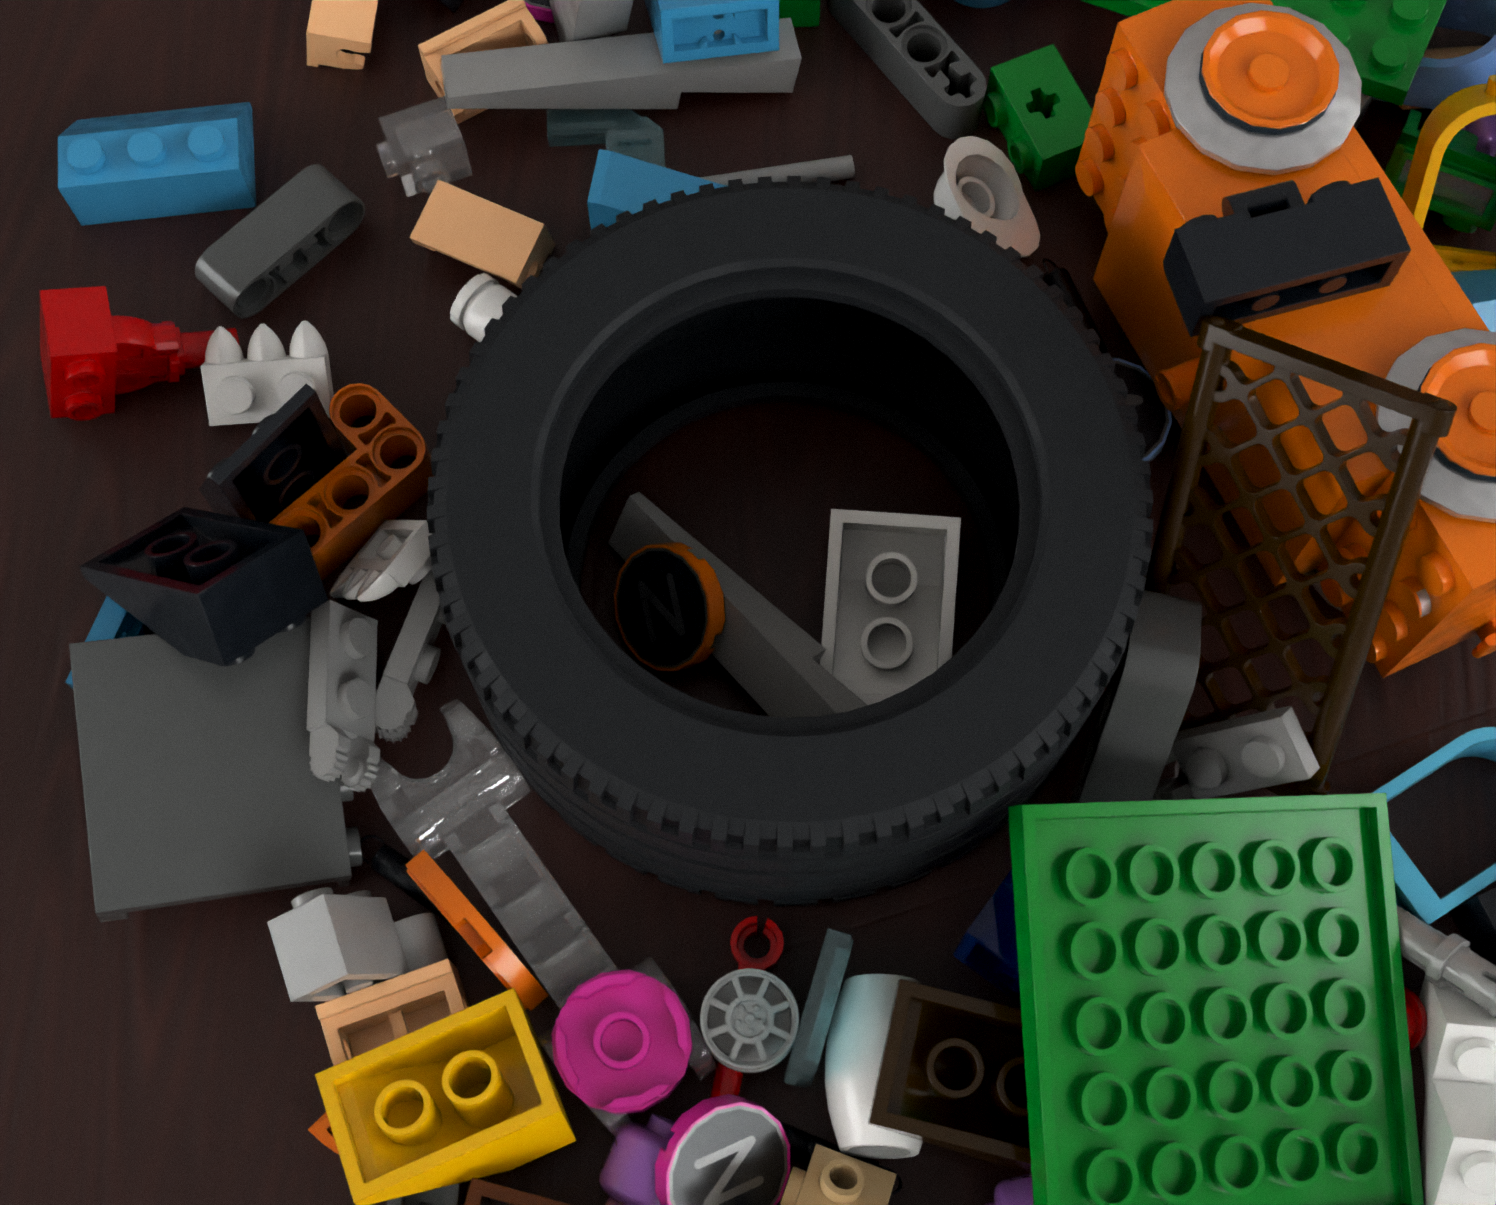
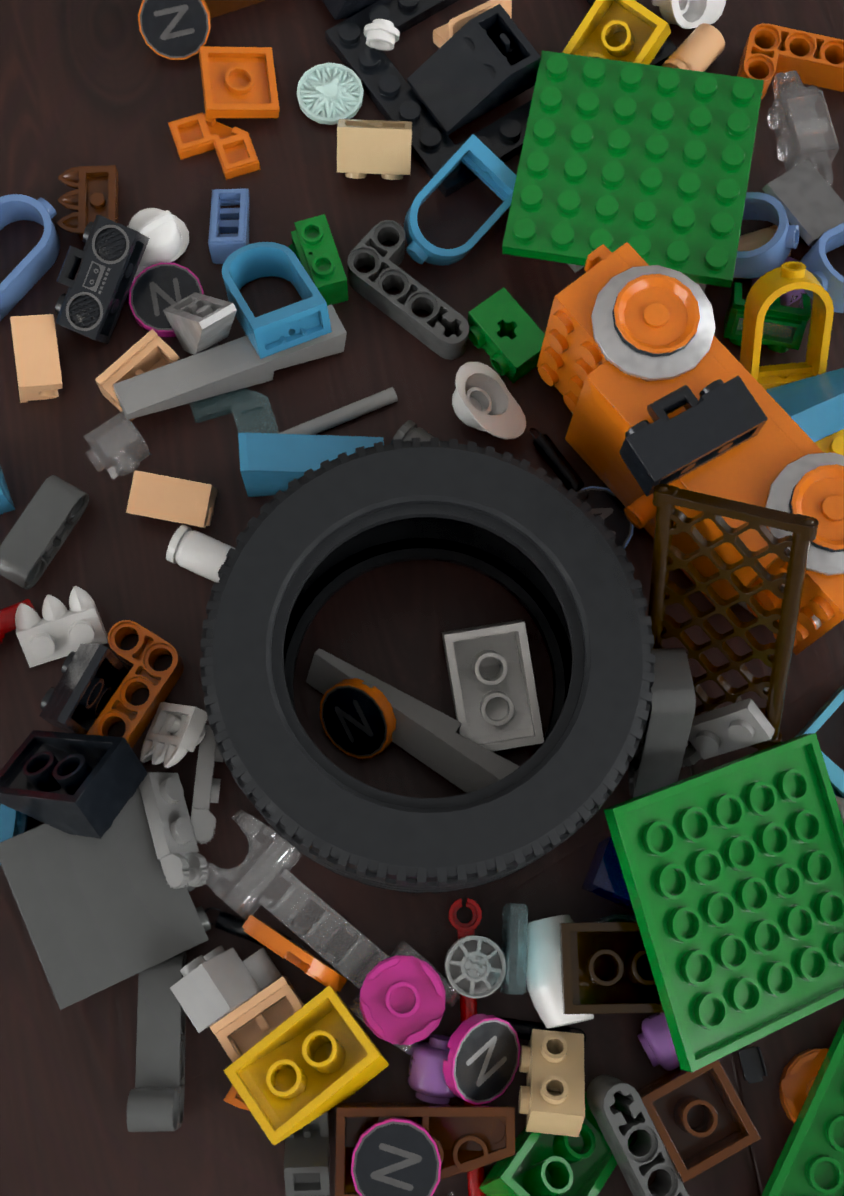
camera: 20 degrees left, 5 degrees up
(230, 1034) = (159, 1088): none -> dark grey beam

